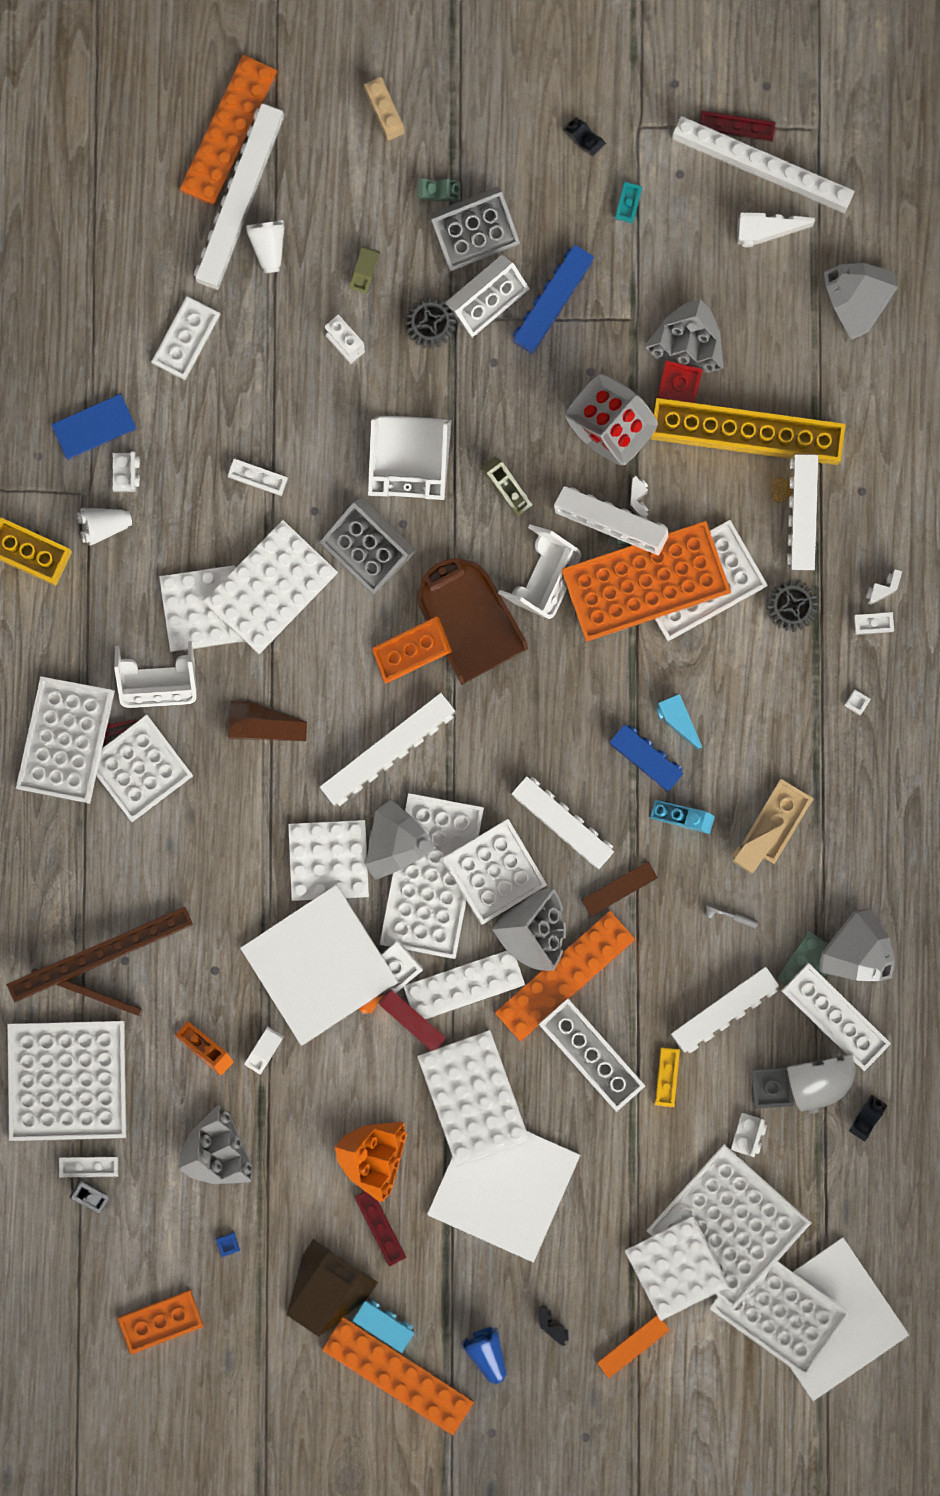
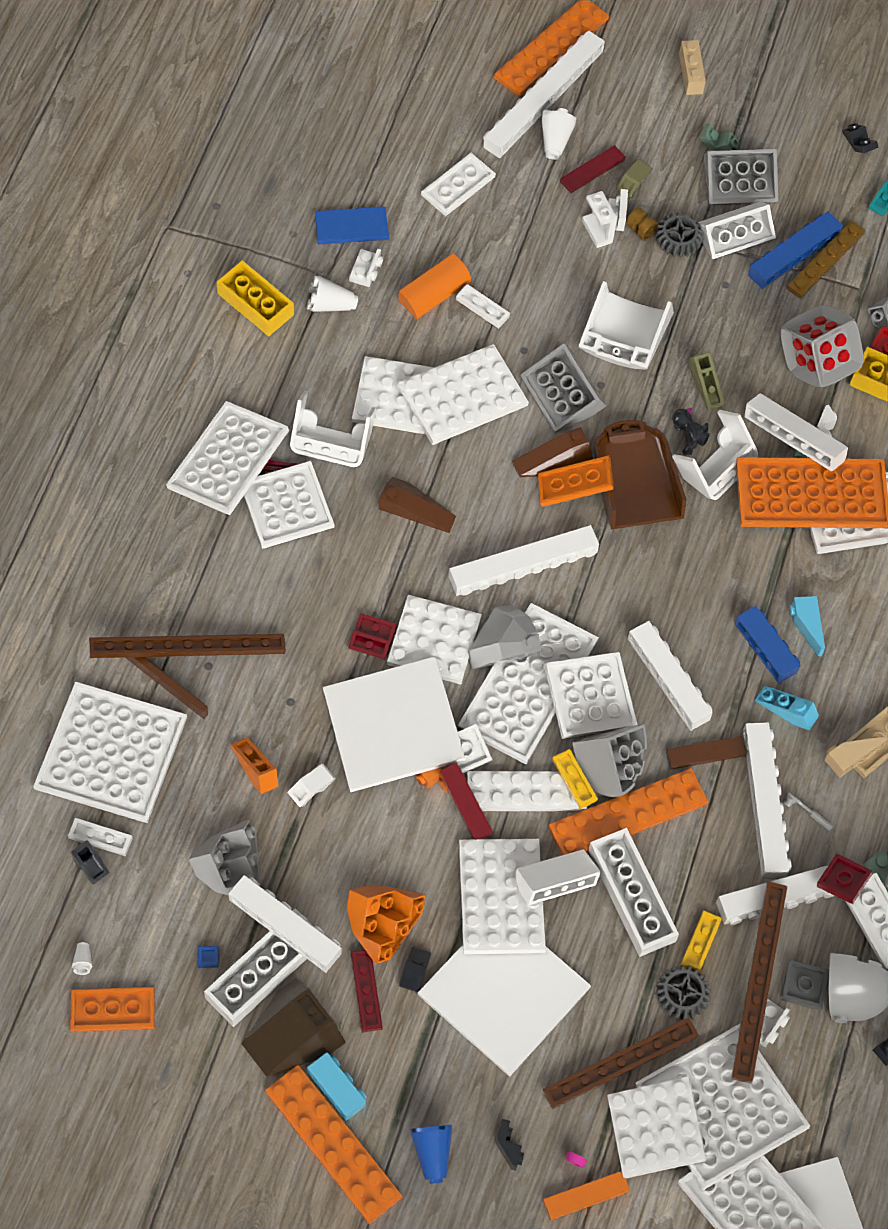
camera: 15 degrees right, 20 degrees down
(116, 1287) = (82, 959): none -> white cone
(202, 471) = (434, 286): none -> orange brick
(269, 878) = (372, 636): none -> dark red slope
(282, 1241) = (253, 977): none -> white brick
(287, 1201) = (285, 923): none -> white brick
(318, 271) = (592, 169): none -> dark red tile
(359, 317) = (619, 207): none -> white bracket
(387, 621) = (559, 452): none -> reddish brown wedge
(389, 324) = (641, 223): none -> pearl gold wheel
(417, 1193) = (415, 969): none -> black slope
(505, 962) = (574, 779): none -> yellow tile
(511, 550) = (694, 432): none -> black animal
(518, 1066) = (556, 876): none -> white brick
(588, 297) = (825, 259): none -> pearl gold plate
(614, 1319) = (575, 1159): none -> dark pink tile
(627, 1218) = (620, 1063): none -> reddish brown plate
(681, 1133) = (675, 990): none -> dark grey gear
(688, 920) = (765, 800): none -> white brick
(730, 1104) = (759, 983): none -> reddish brown plate
(781, 981) = (844, 878): none -> dark red plate

